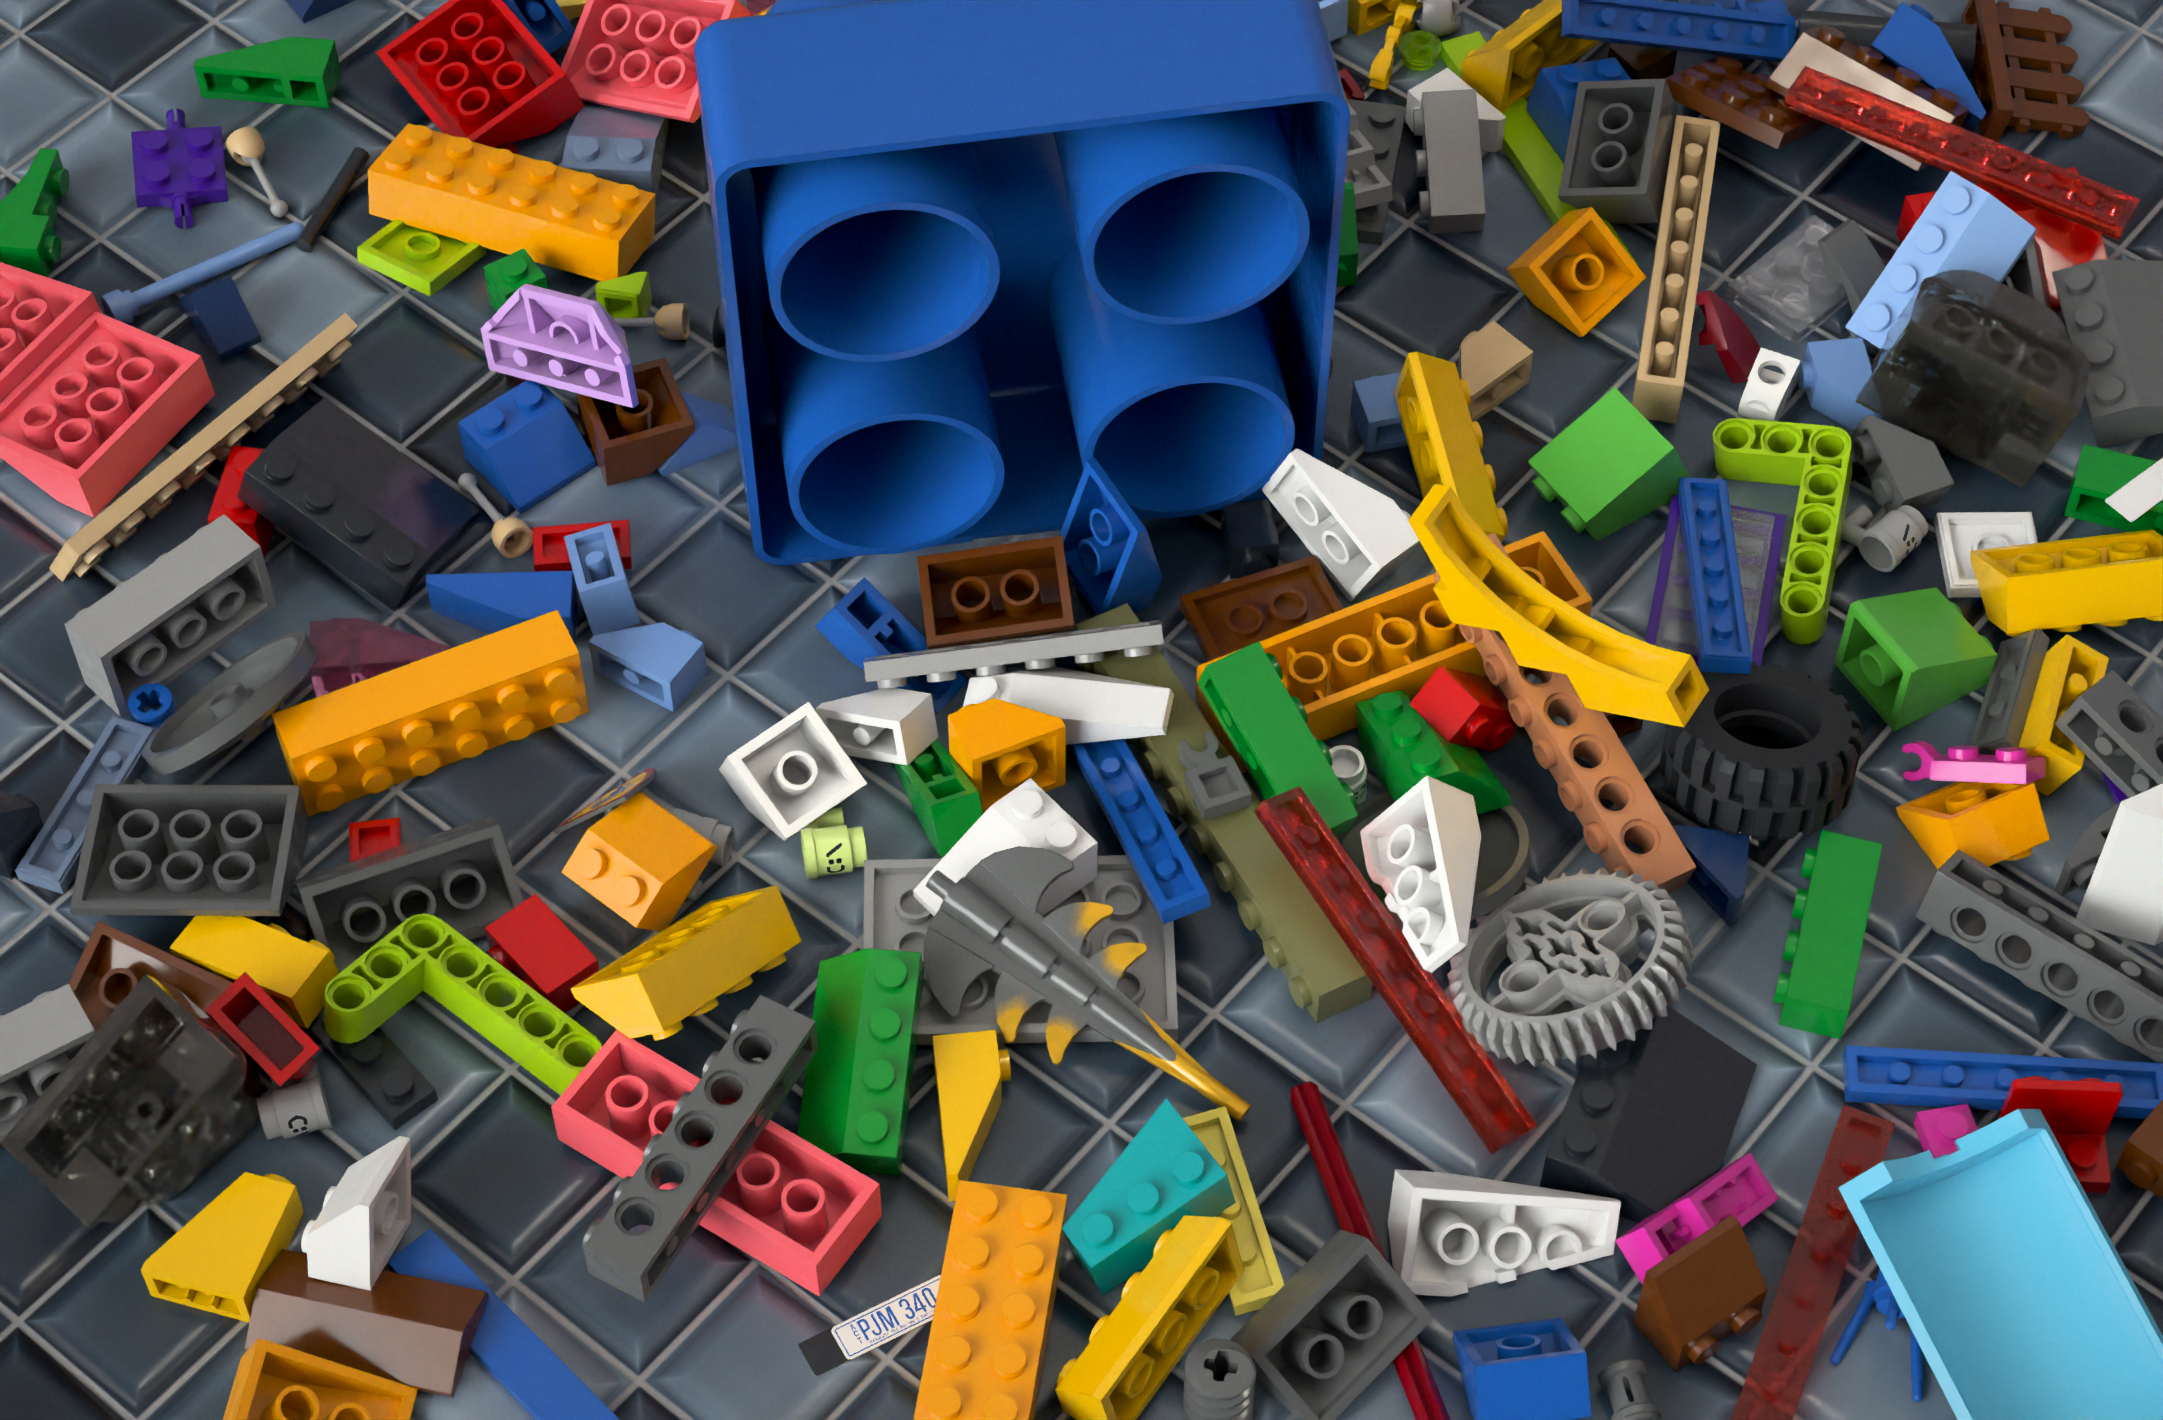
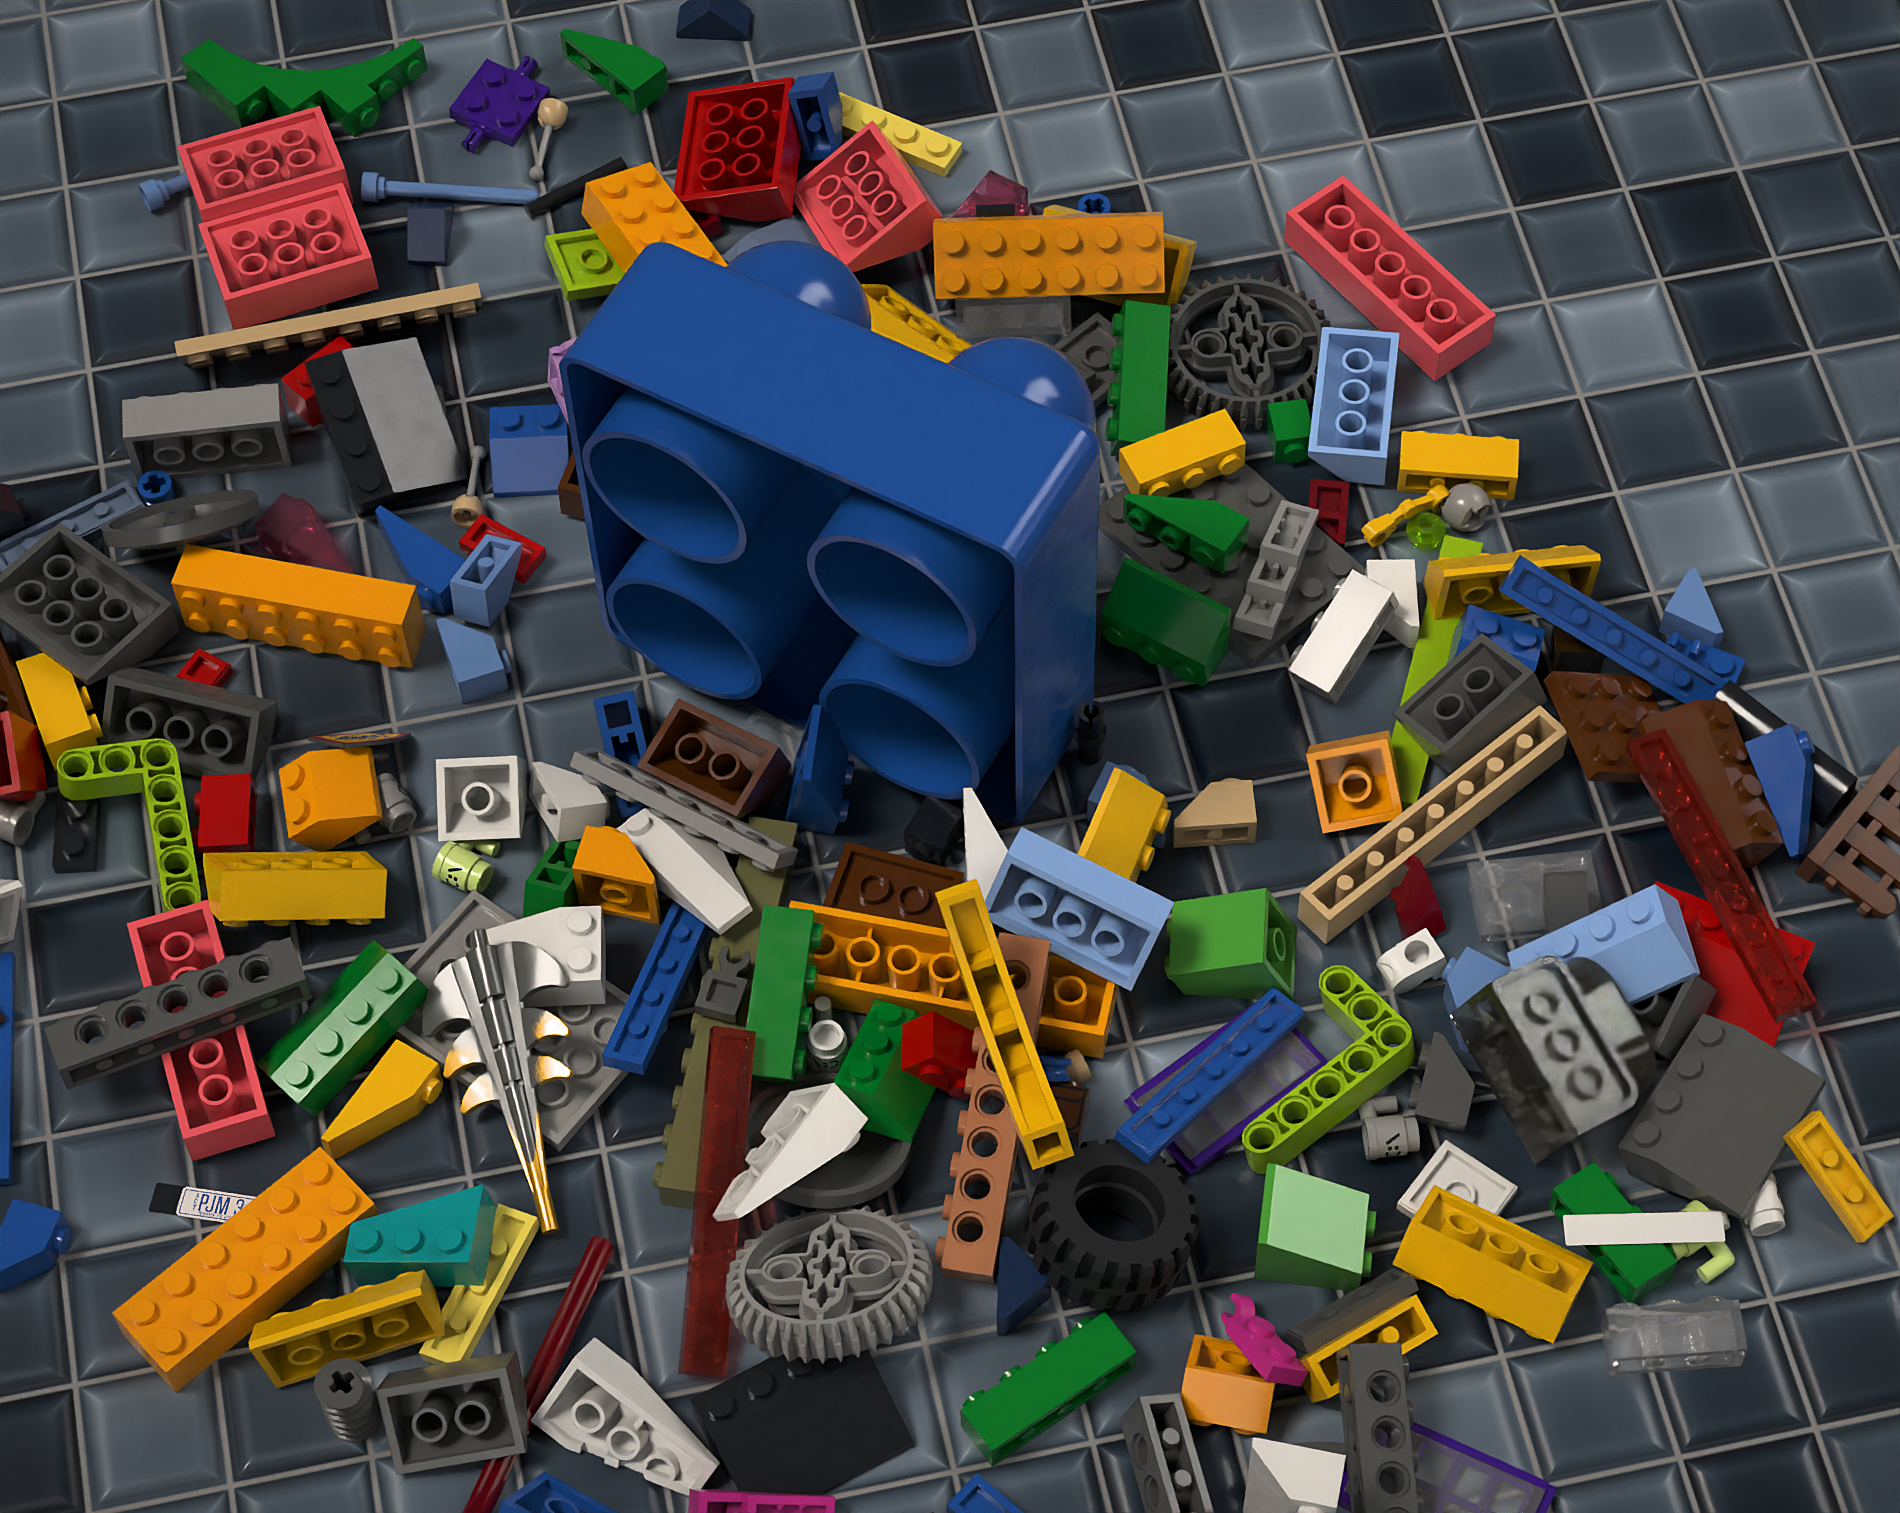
camera: 40 degrees right, 5 degrees up
(1517, 488) = (1078, 906): none -> light blue slope

